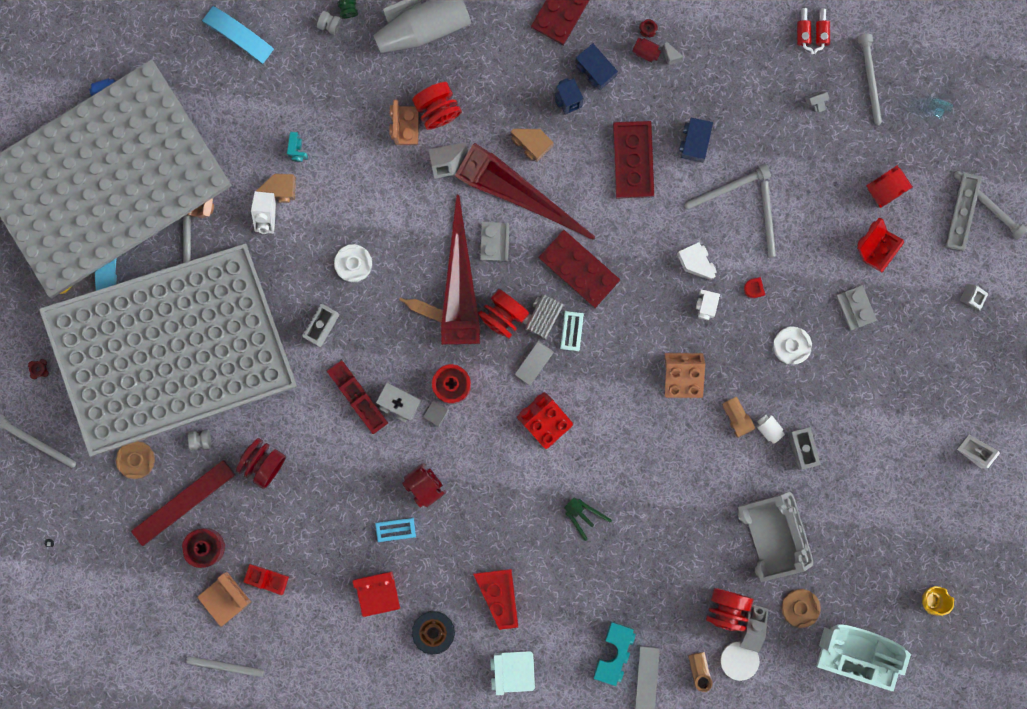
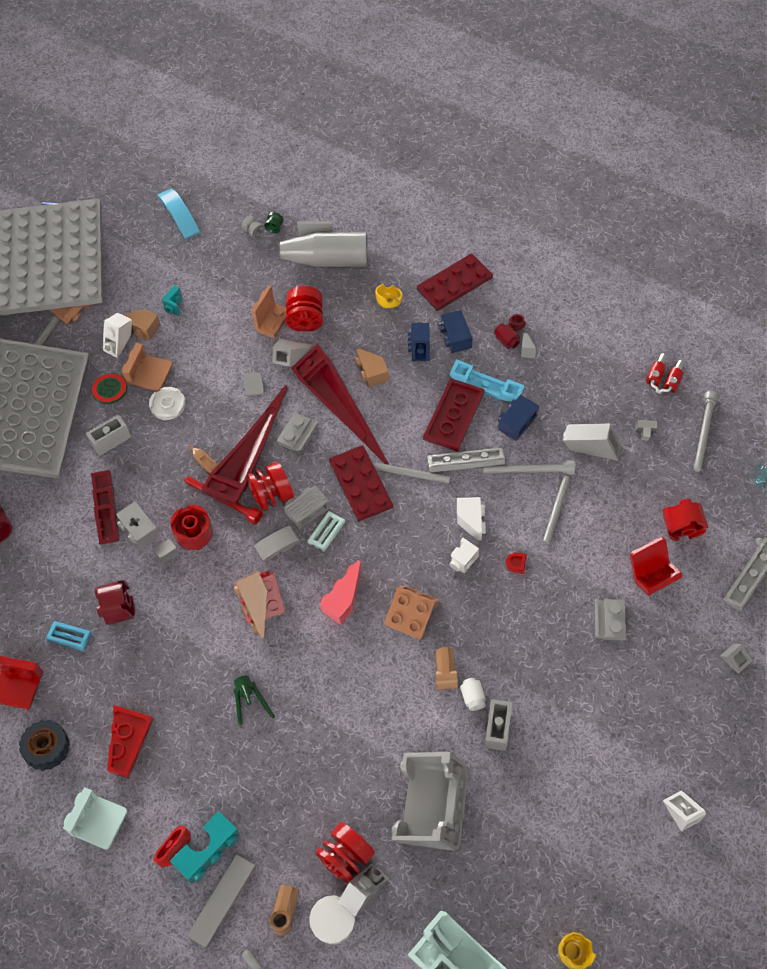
camera: 25 degrees right, 25 degrees down
(289, 273) = (109, 388): none -> piece
(315, 237) = (145, 370): none -> nougat bracket
(426, 208) = (253, 384): none -> light grey slope
(497, 344) = (252, 514): none -> red piece
(516, 55) = (384, 294): none -> yellow hair
(548, 428) = (254, 595): none -> medium nougat slope
(586, 664) = (172, 846): none -> red plate
(620, 392) = (341, 599): none -> coral slope
(622, 237) = (412, 473): none -> light grey bar
(655, 112) = (493, 387): none -> medium azure slope
(665, 203) = (466, 459): none -> light grey tile
(774, 135) = (593, 440): none -> light grey slope
(788, 341) = (535, 632): white tile -> none
(800, 602) = (419, 899): medium nougat tile -> none

